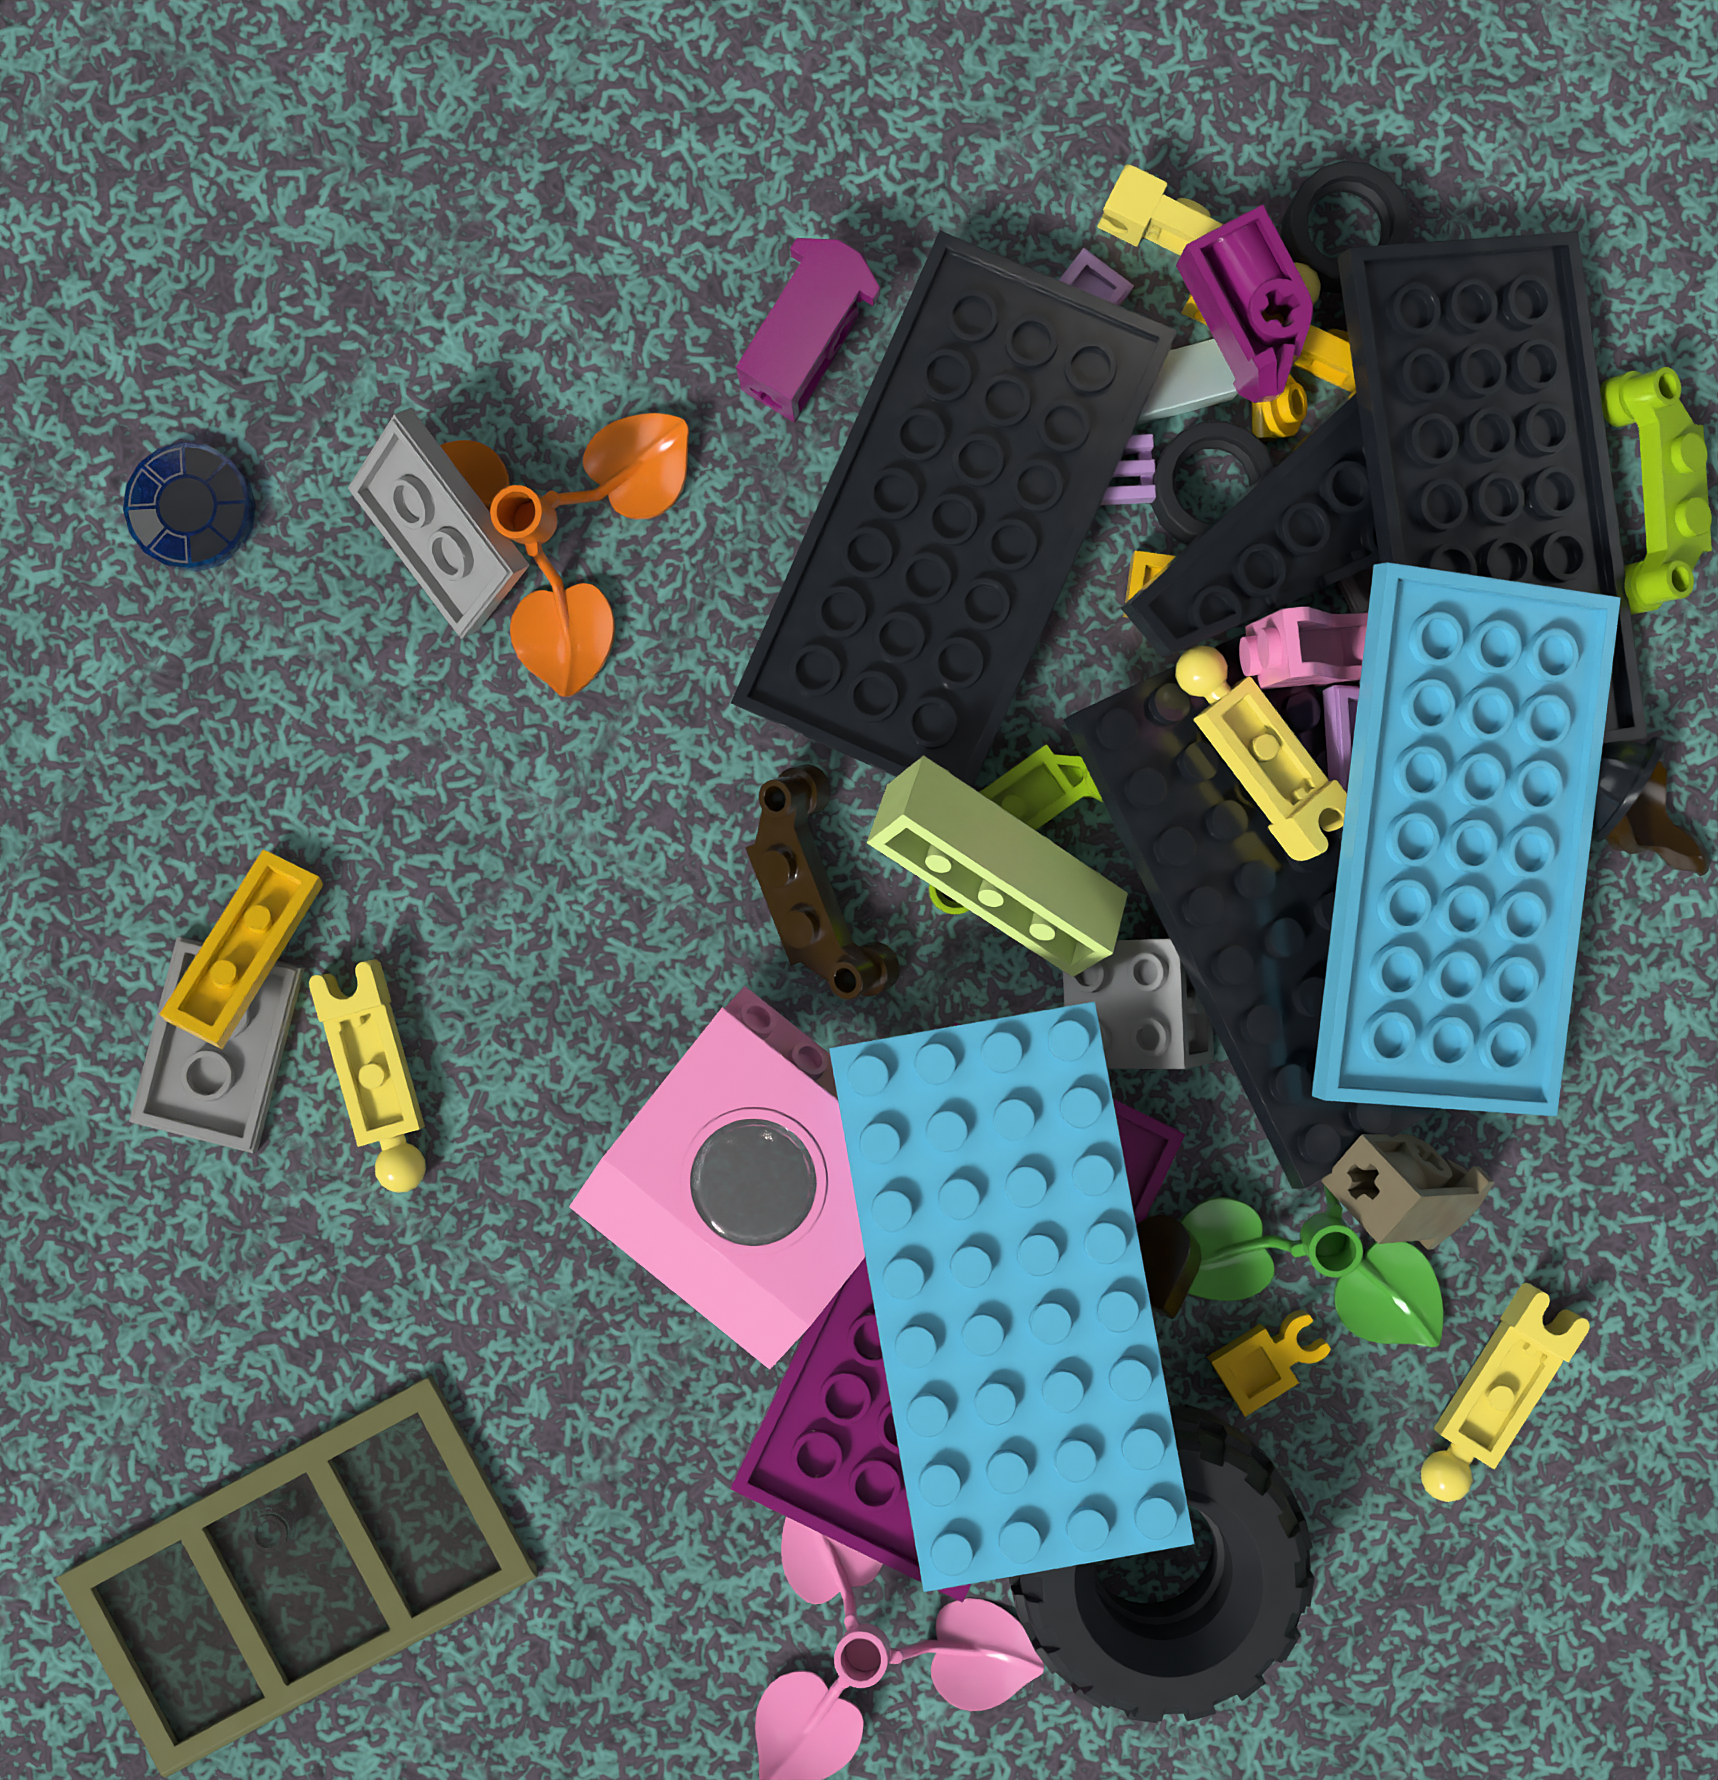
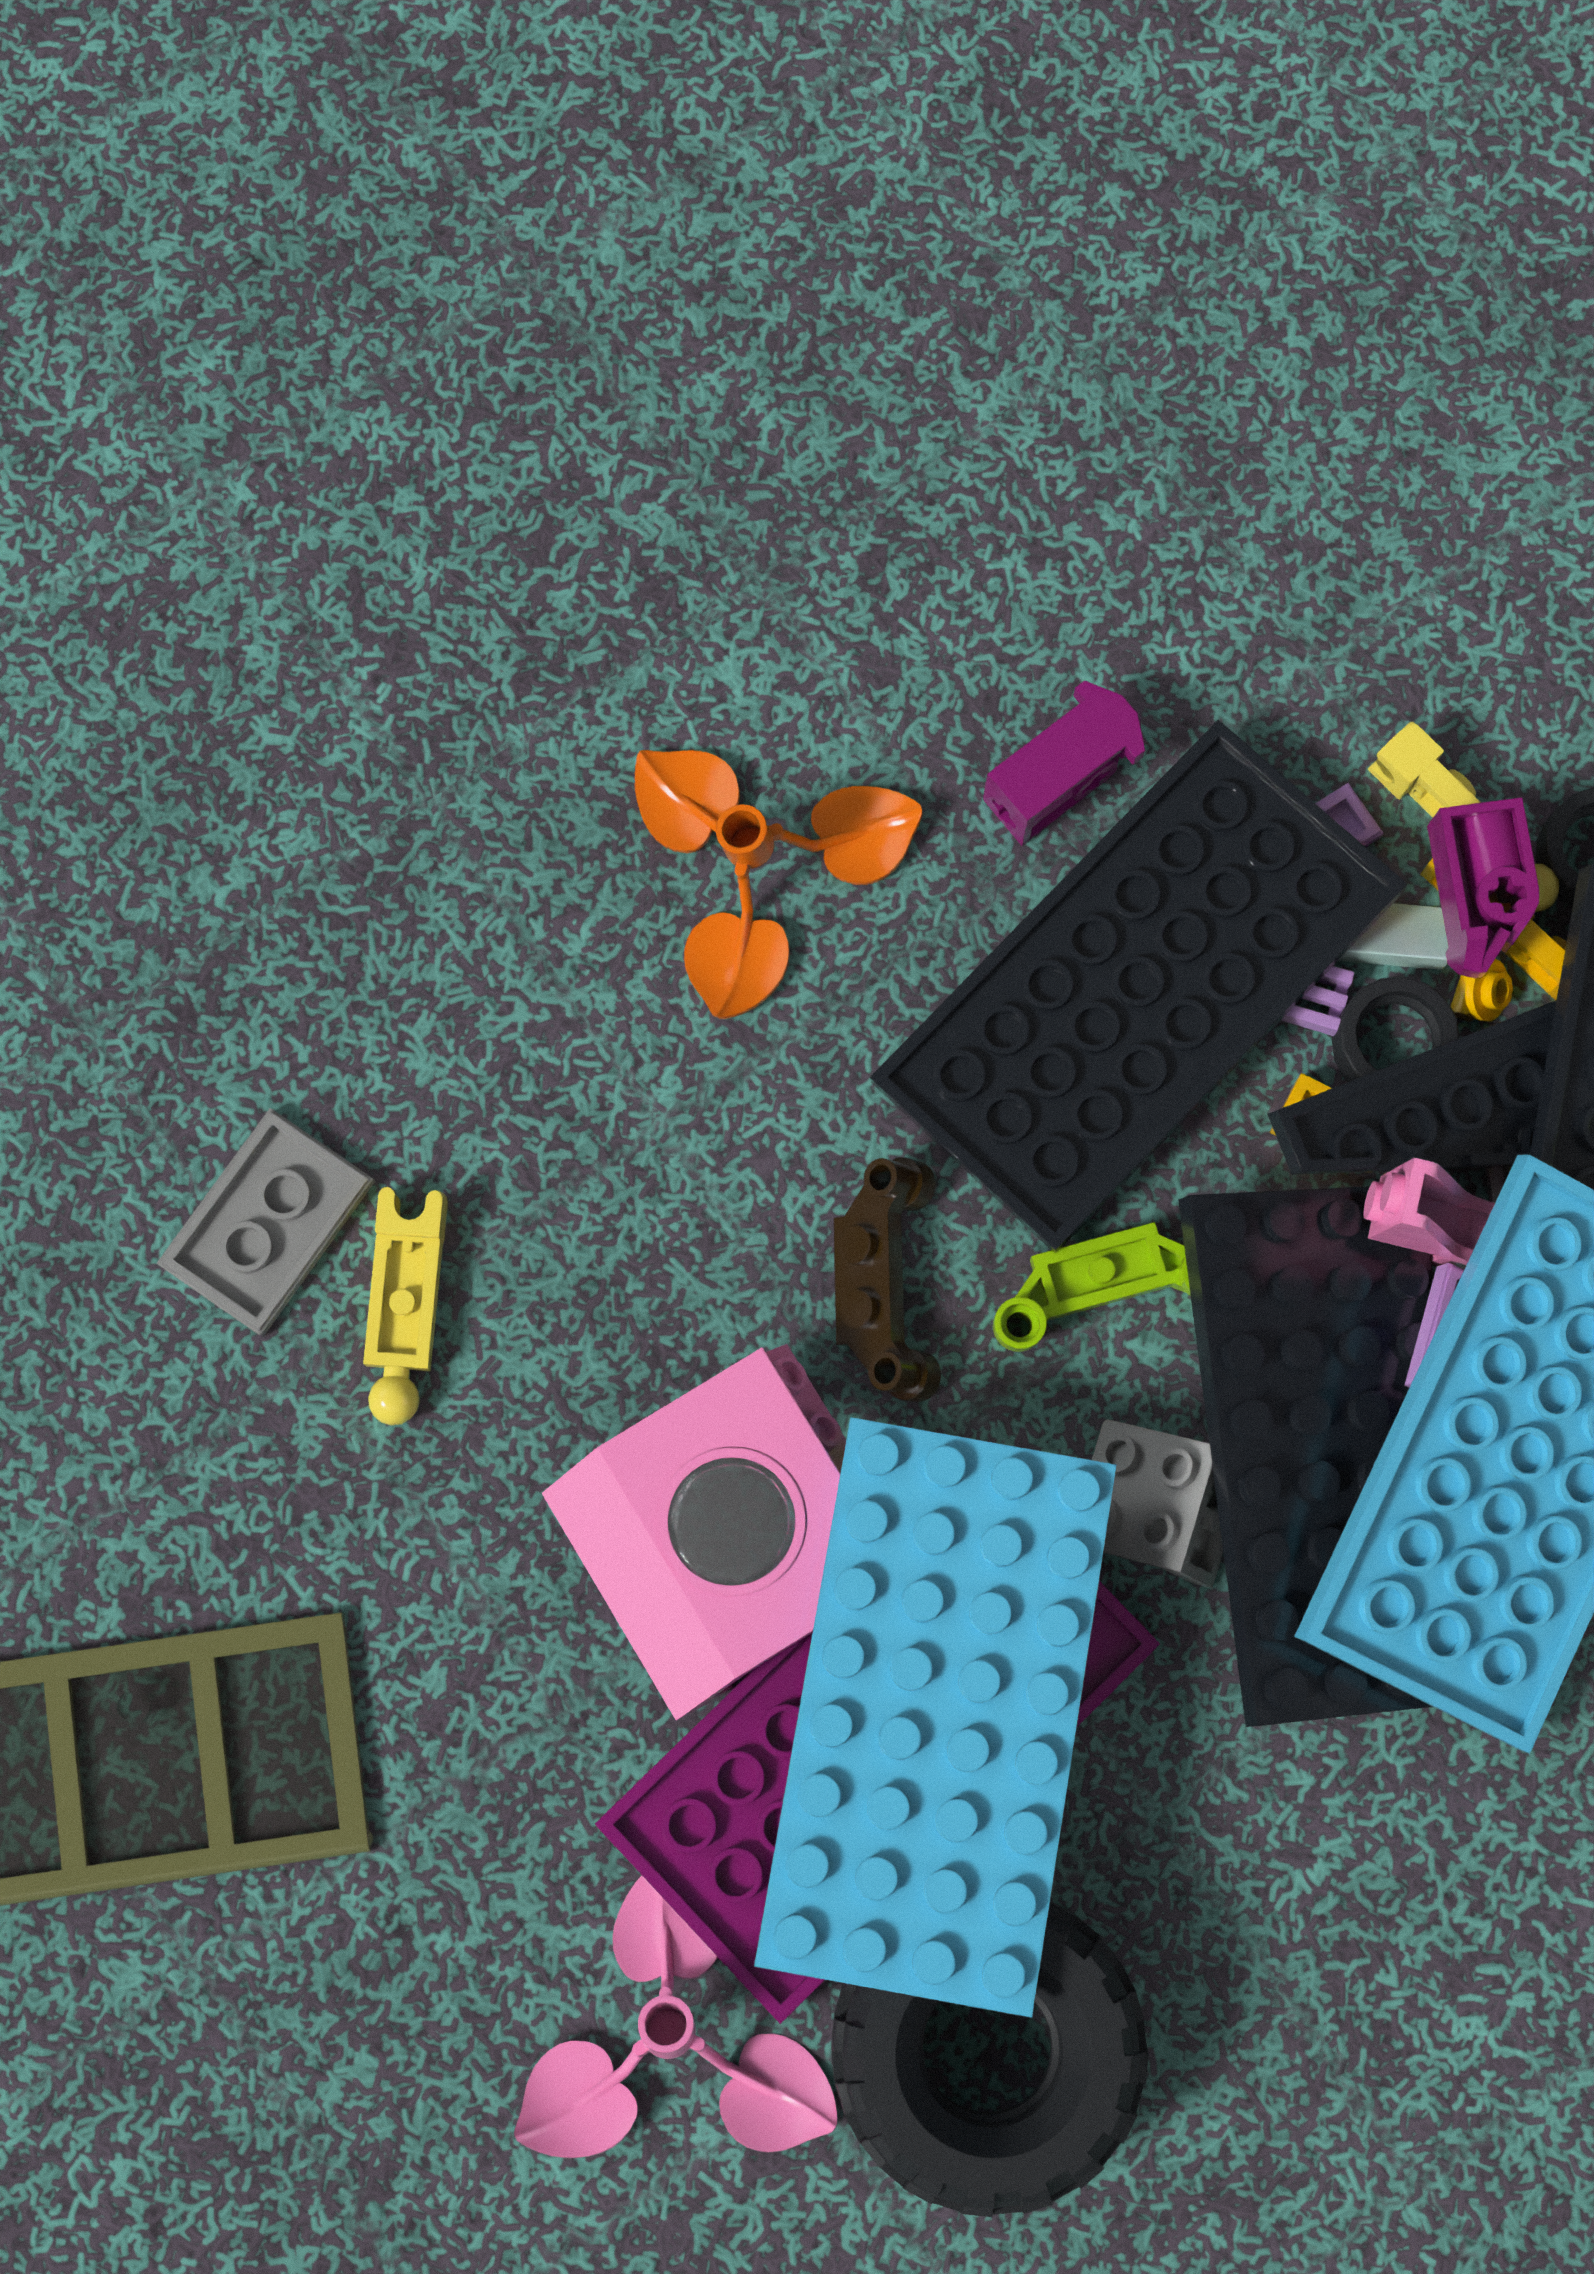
camera: 15 degrees right, 10 degrees down
(189, 506) = (435, 724): tile -> none
(241, 949) = (329, 1138): yellow plate -> none
(436, 524) = (659, 819): light grey tile -> none
(998, 867) = (1069, 1315): yellowish green brick -> none
(1169, 1261) = (1100, 1758): dark brown piece -> none
(1258, 1366) = (1153, 1904): yellow plate -> none
(1264, 754) = (1357, 1299): light yellow plate -> none
(1379, 1297) = (1299, 1885): bright green plant -> none
(1406, 1189) = (1359, 1773): dark tan piece -> none
(1501, 1390) = (1385, 2021): light yellow plate -> none

